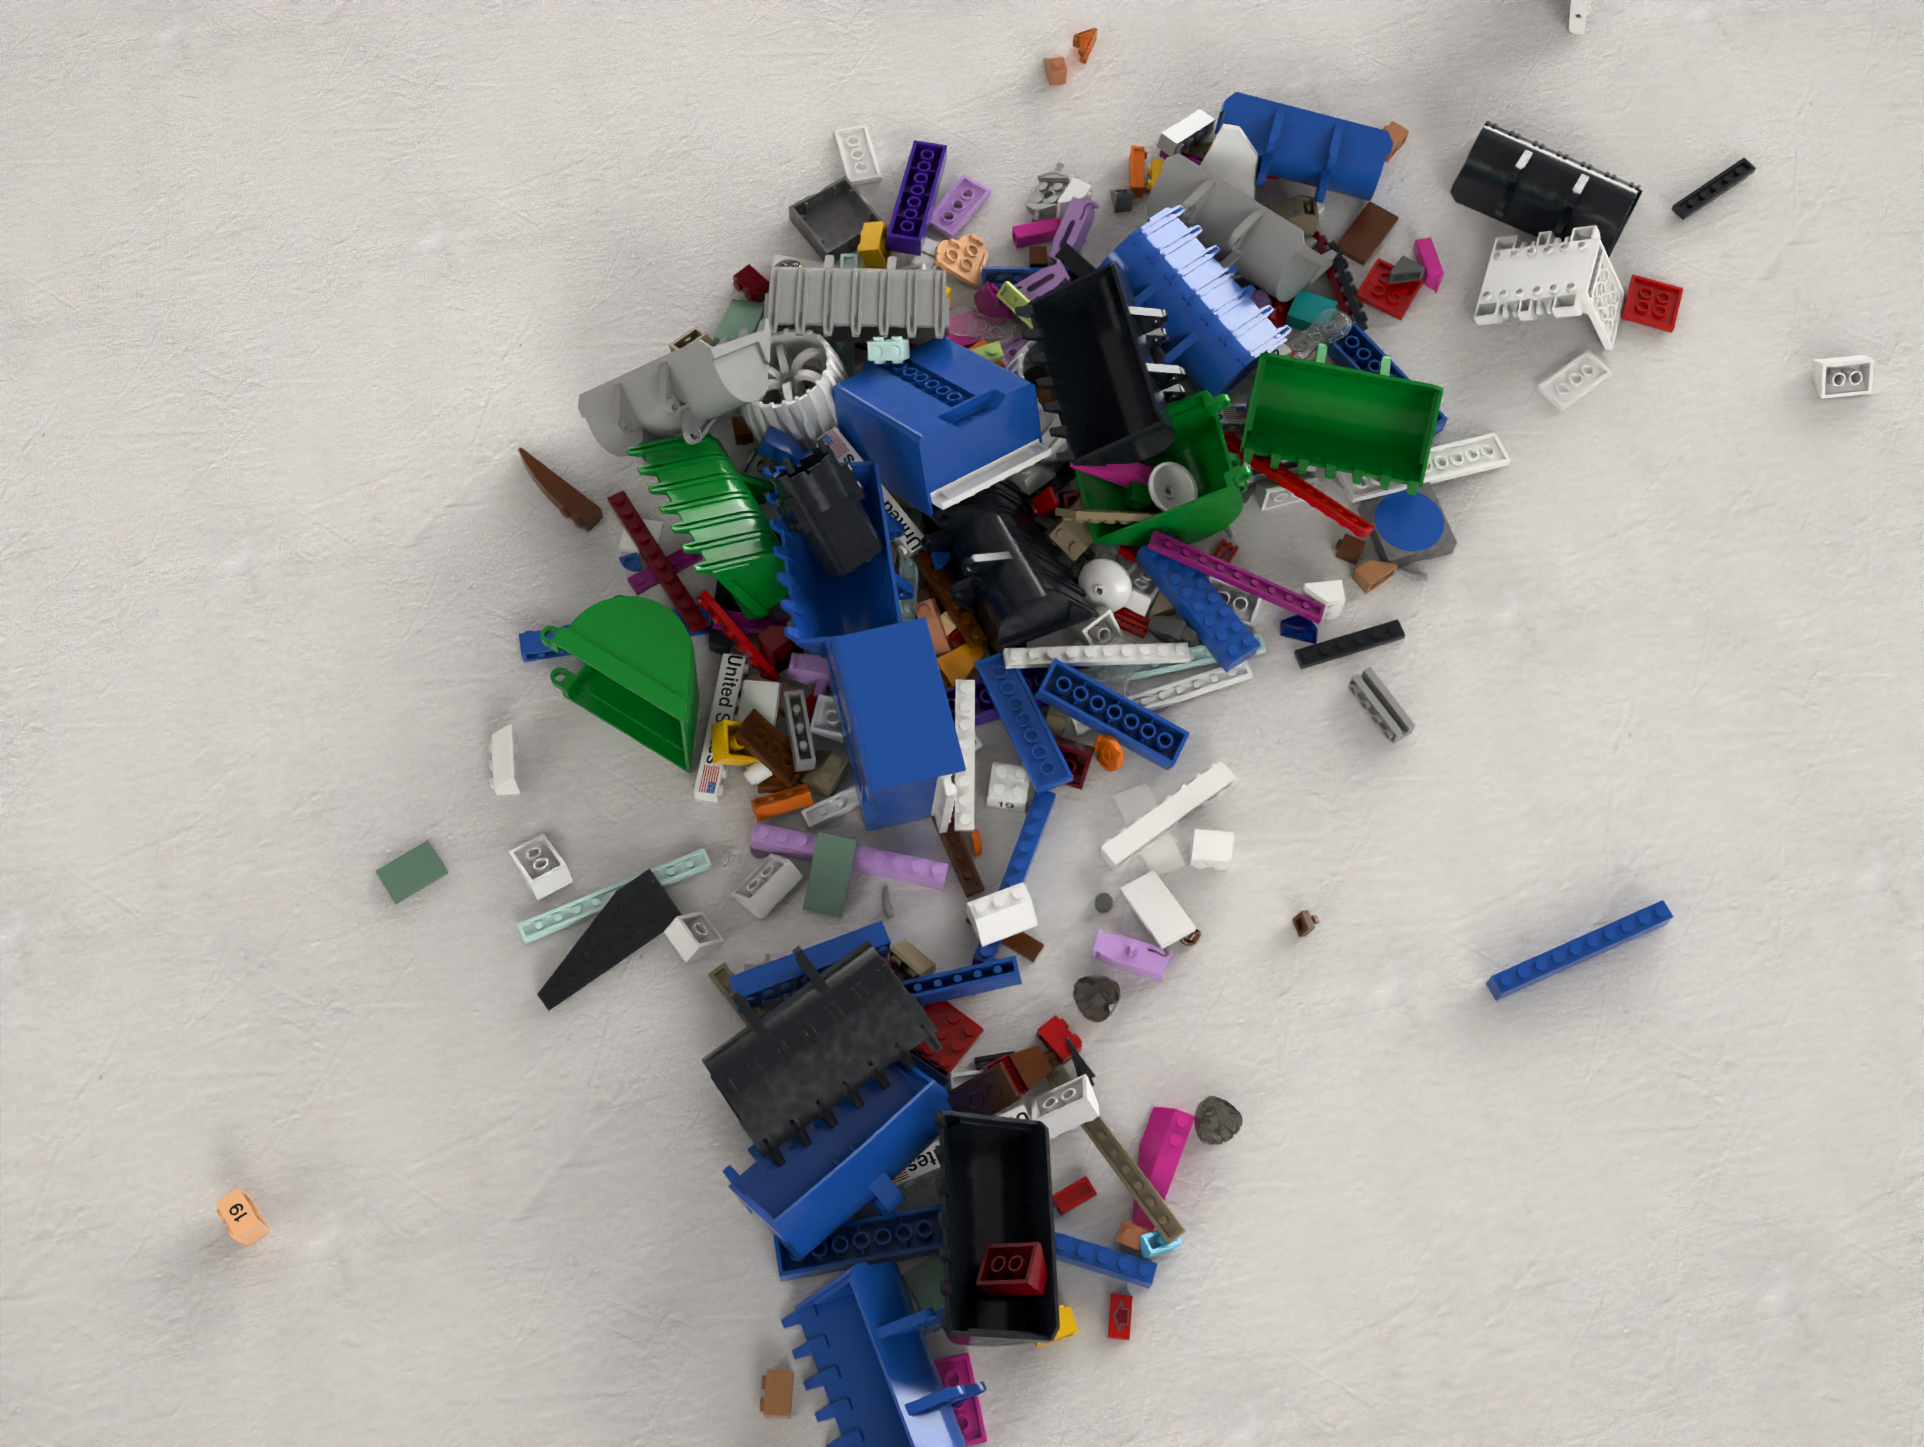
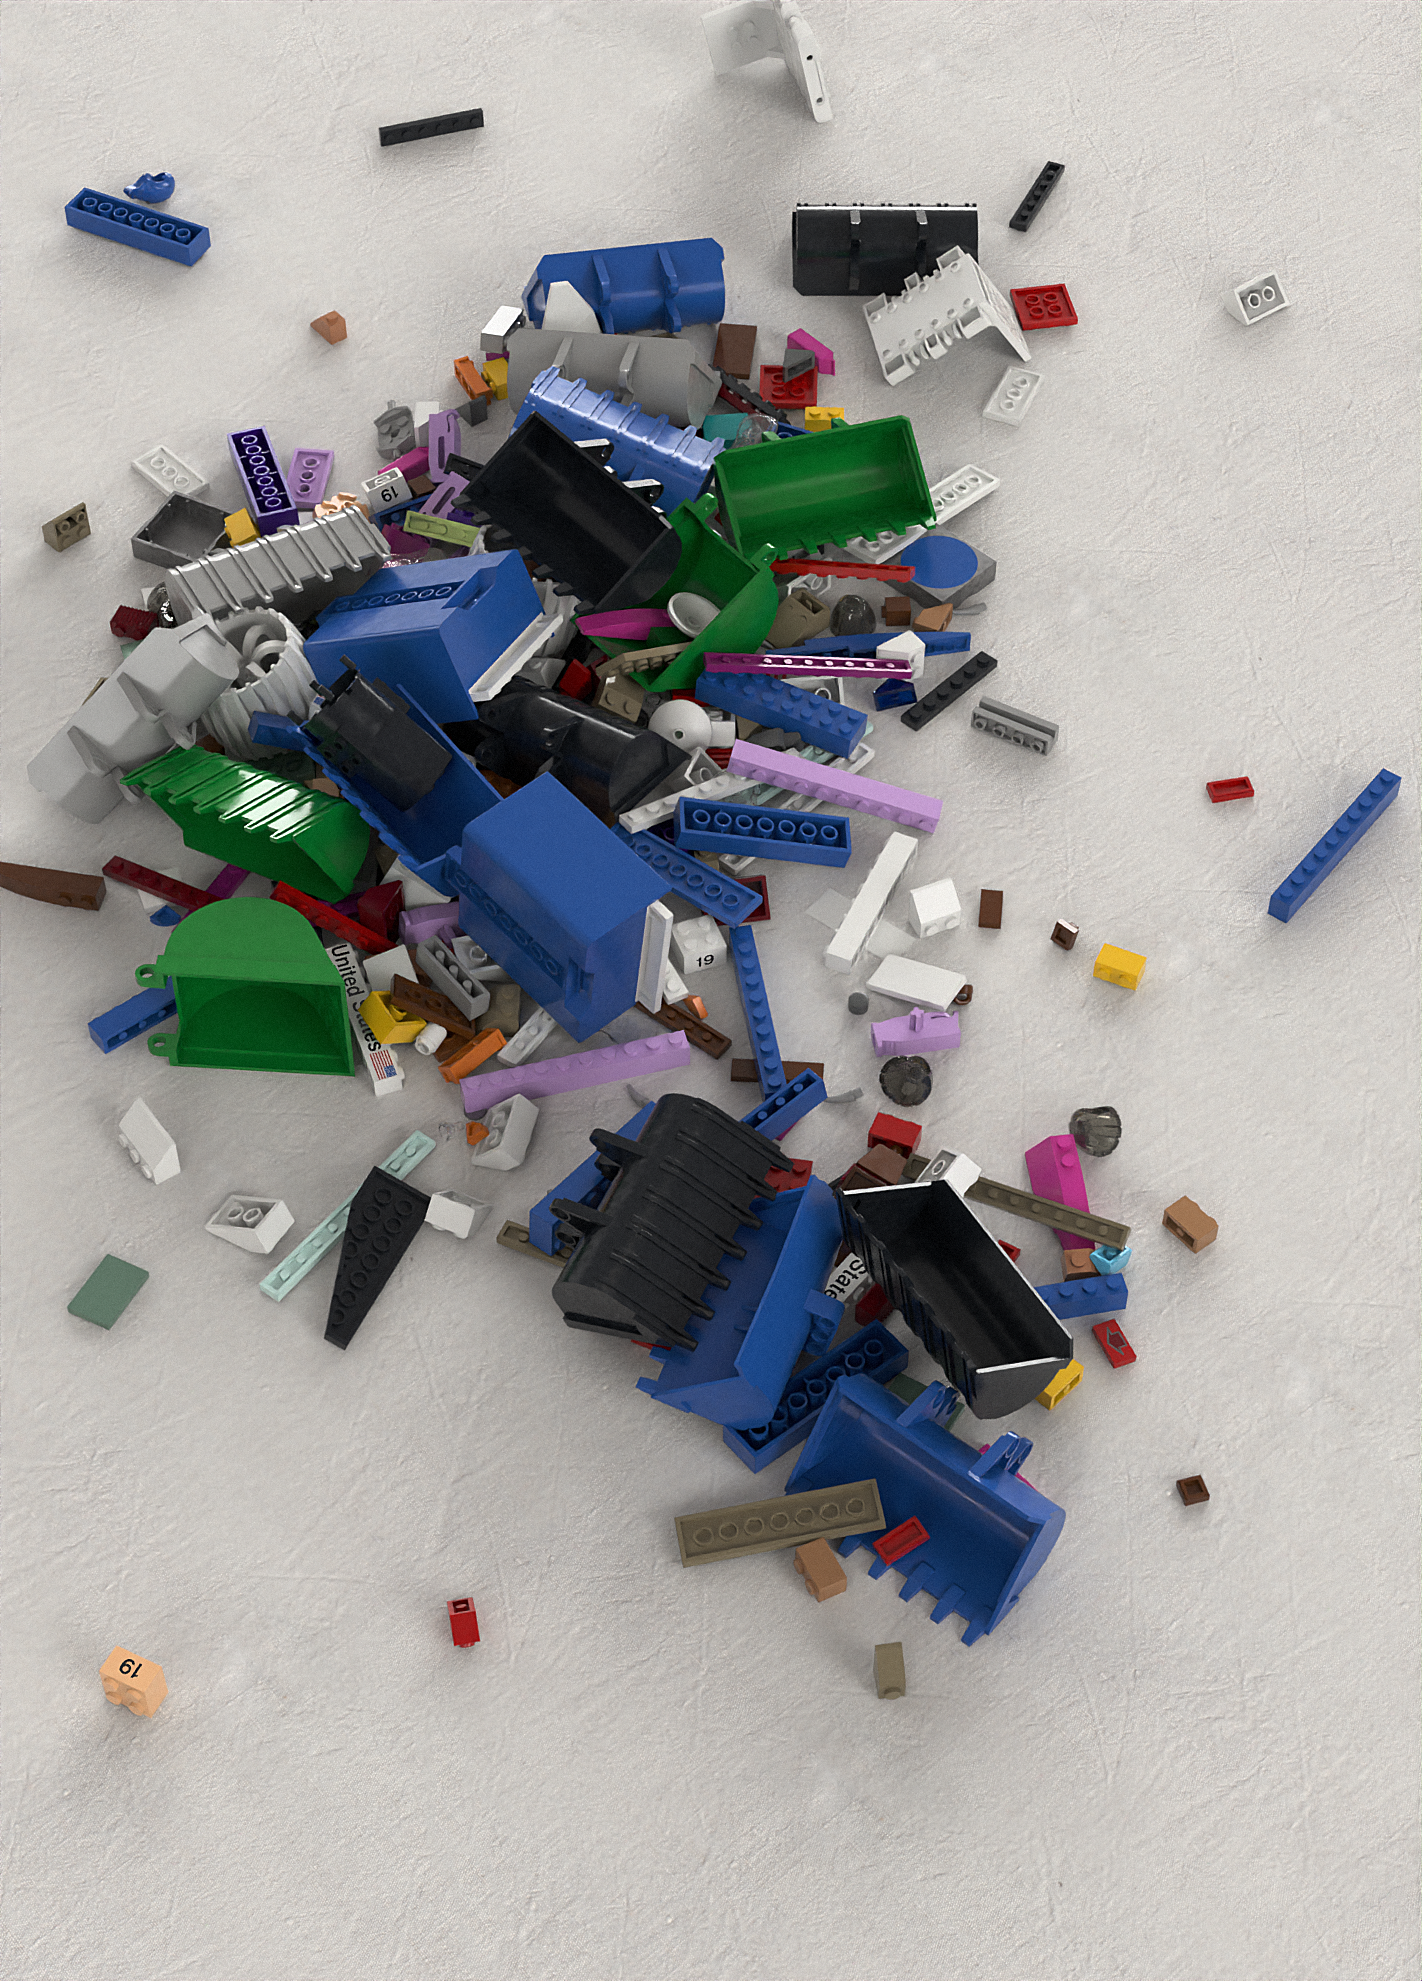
camera: 25 degrees left, 15 degrees down
(498, 1291) = (463, 1622): none -> red slope
(747, 871) = (476, 1132): none -> orange tile
(750, 173) = (67, 528): none -> dark tan slope
(770, 1339) = (779, 1523): none -> dark tan plate
(830, 874) = (567, 1091): sand green tile -> none
(850, 1405) = (901, 1540): none -> red tile
(888, 349) = (340, 591): light aqua brick -> none
(939, 559) = (501, 766): blue tile -> none
(1002, 914) = (770, 1039): white slope -> none
(1007, 249) = (387, 490): none -> white brick
(1013, 1269) = (992, 1319): dark red slope -> none
(1048, 984) = (846, 1097): none -> light grey helmet
(1080, 1065) = (930, 1144): black piece -> none
(1085, 42) = (344, 294): clear orange slope -> none
(1109, 752) = (780, 870): orange tile -> none
(1196, 698) = (835, 786): none -> lavender brick
(1243, 1243) = (1190, 1224): none -> medium nougat brick
(1260, 867) = (990, 909): none -> reddish brown tile
(1261, 522) = (798, 620): none -> dark tan slope
(1299, 571) = (866, 644): none -> blue slope
(1309, 540) = (852, 617): none -> clear smoke hair
(1330, 976) = (1119, 966): none -> yellow brick
(1397, 338) = (820, 417): none -> yellow brick
(1525, 850) = (1230, 789): none -> red tile

